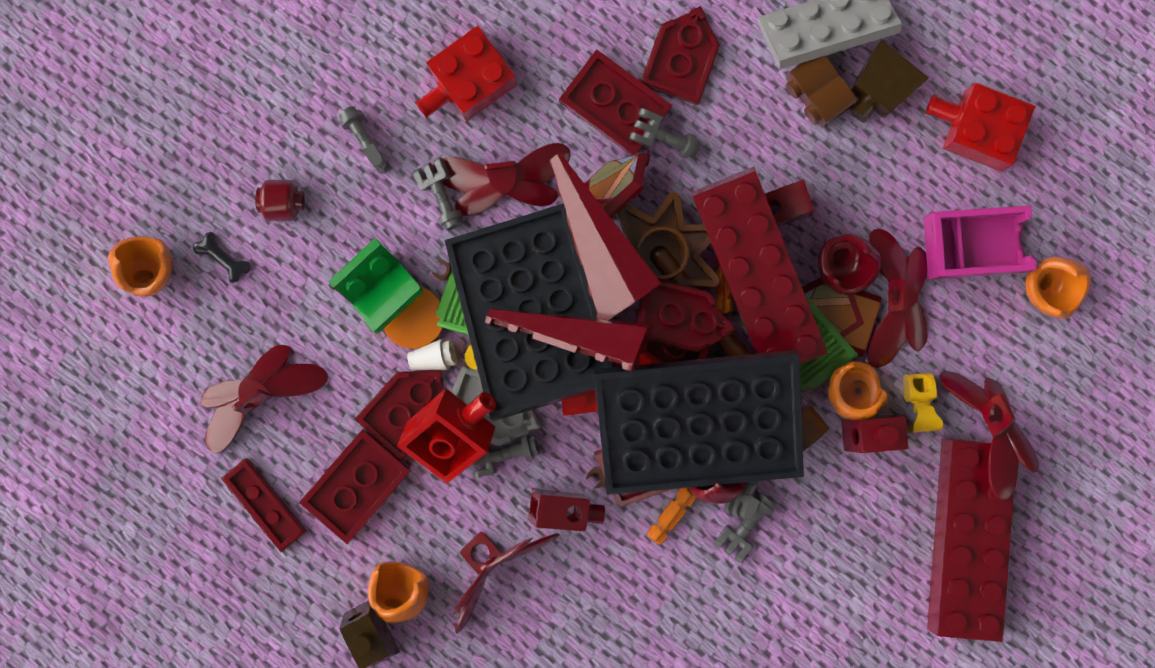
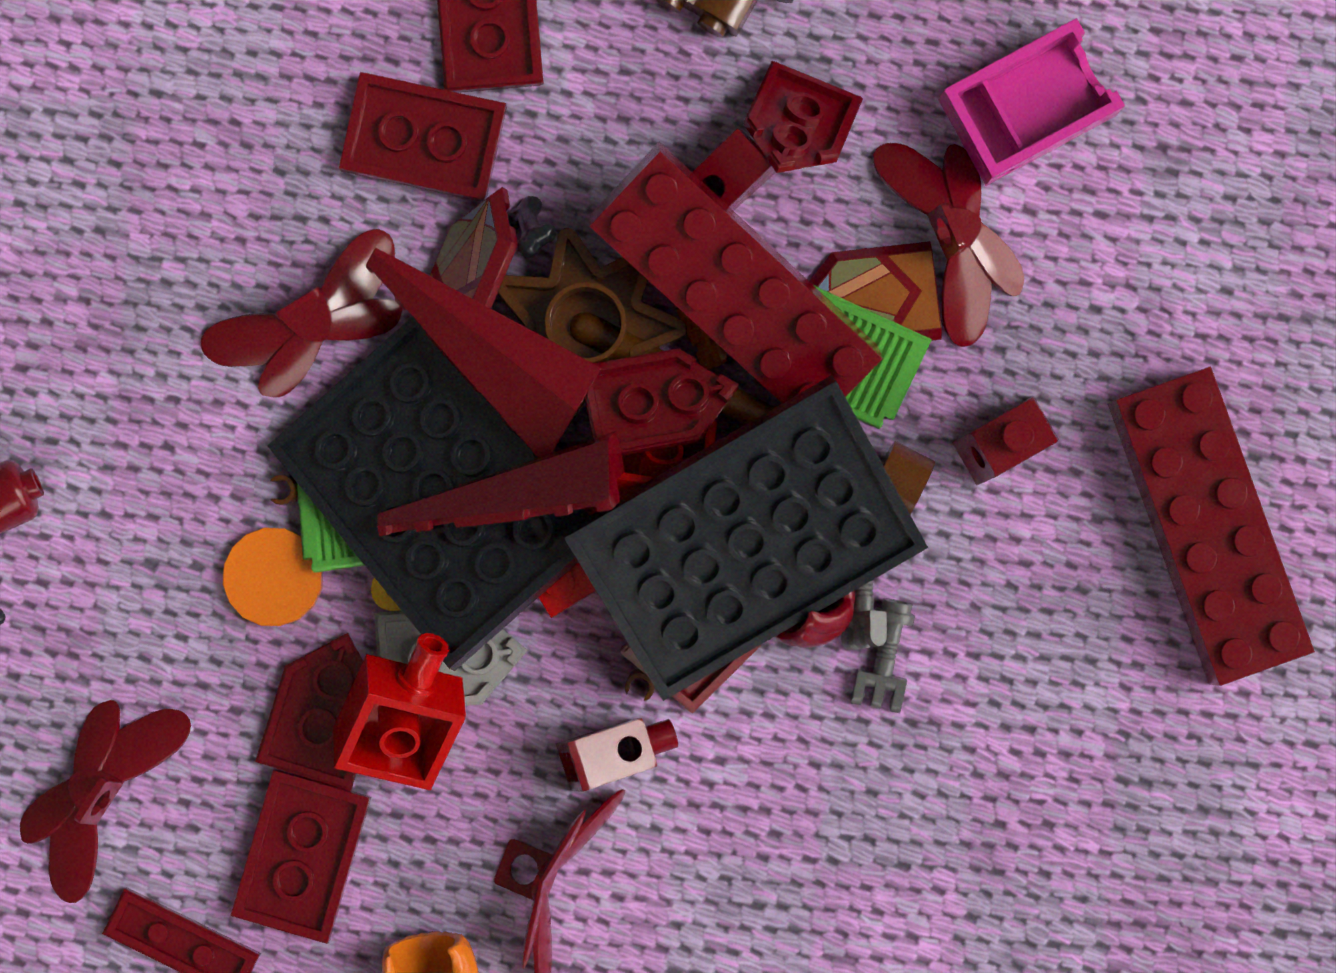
camera: 30 degrees left, 0 degrees up
(351, 119) = (53, 332): dark grey hinge -> none
(376, 285) = (200, 555): green bracket -> none
(434, 356) = (328, 619): white cone -> none
(450, 219) = (261, 410): dark grey hinge -> none
(468, 76) = (193, 194): red brick -> none
(527, 447) = (523, 687): dark grey hinge -> none
(654, 187) = (533, 234): none -> black piece
(671, 516) = (772, 690): orange axle -> none
(687, 145) = (554, 150): dark grey hinge -> none
(840, 191) = (800, 119): none -> dark red tile
(843, 395) = (955, 414): orange piece -> none
(857, 266) = (873, 220): dark red piece -> none
(920, 391) = (1045, 352): yellow leg -> none
(1008, 441) = (1194, 365): dark red piece -> none
(1058, 286) = (1179, 115): orange piece -> none

